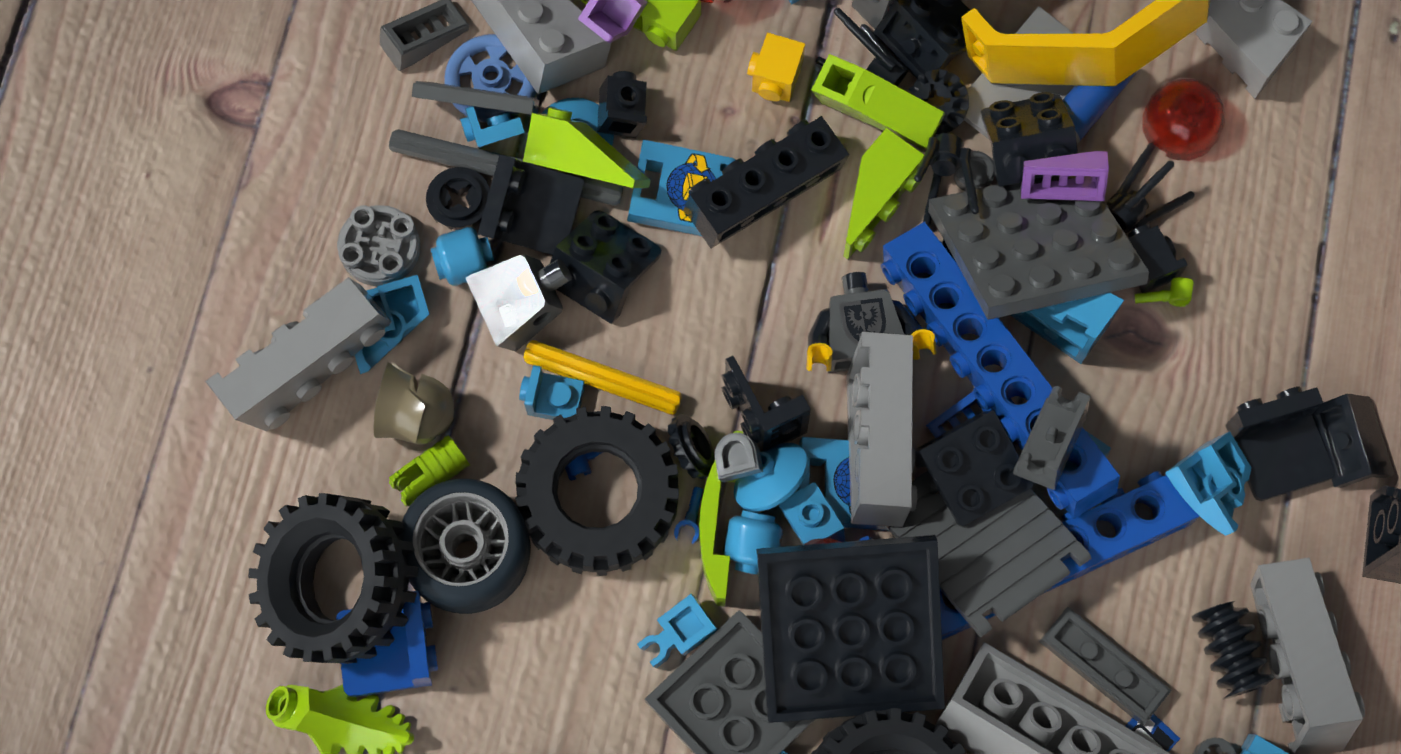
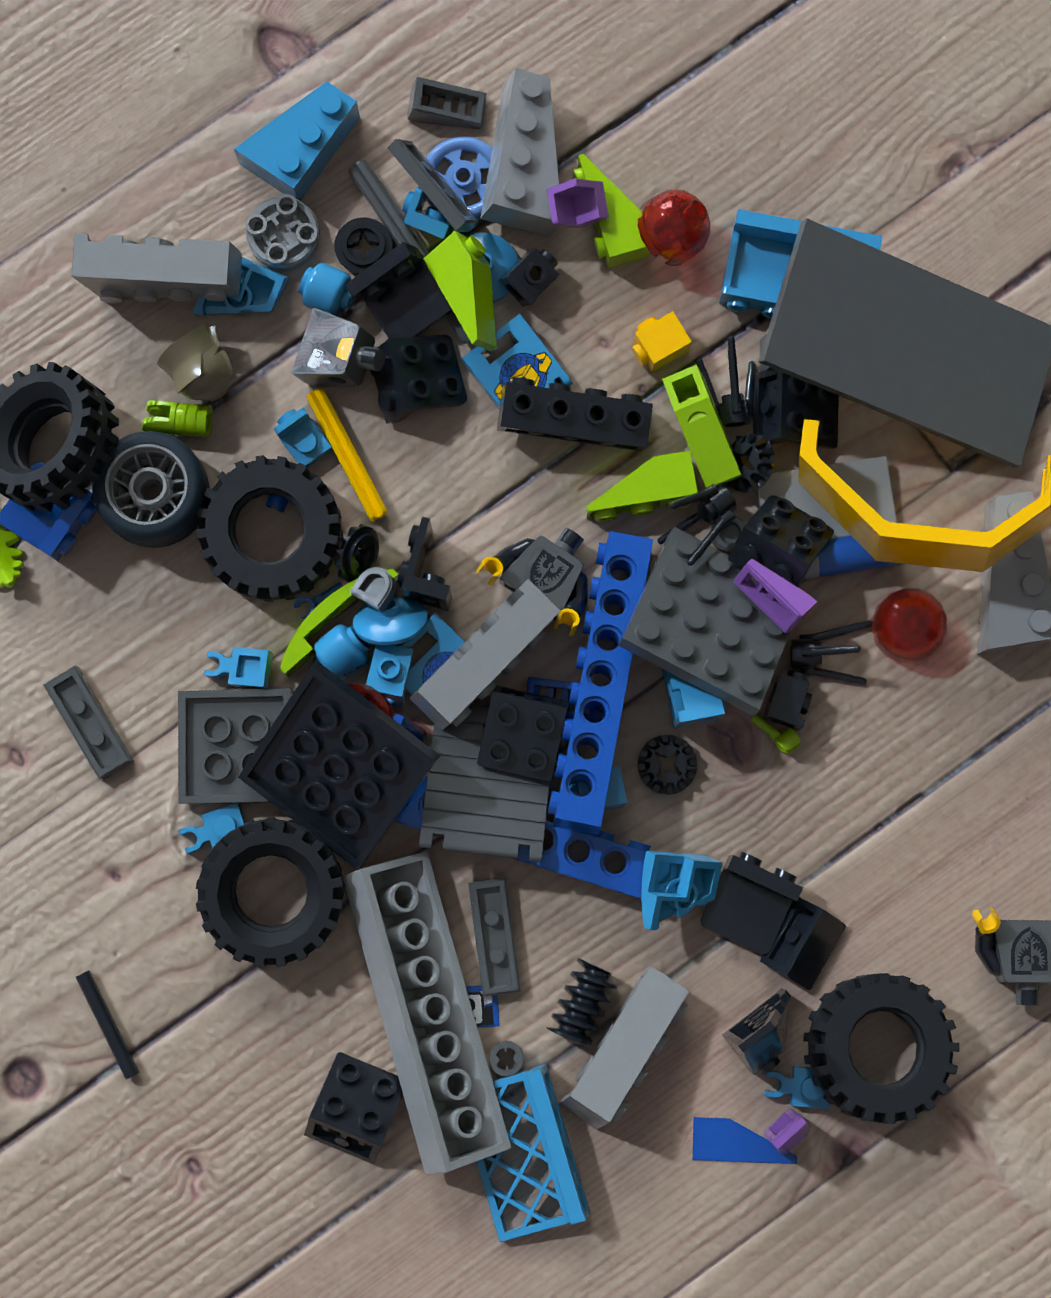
camera: 40 degrees right, 10 degrees up
(327, 158) = (300, 141): none -> dark azure wedge
(1052, 438) = (579, 763): dark grey hinge -> none
(1121, 407) = (669, 782): none -> black gear

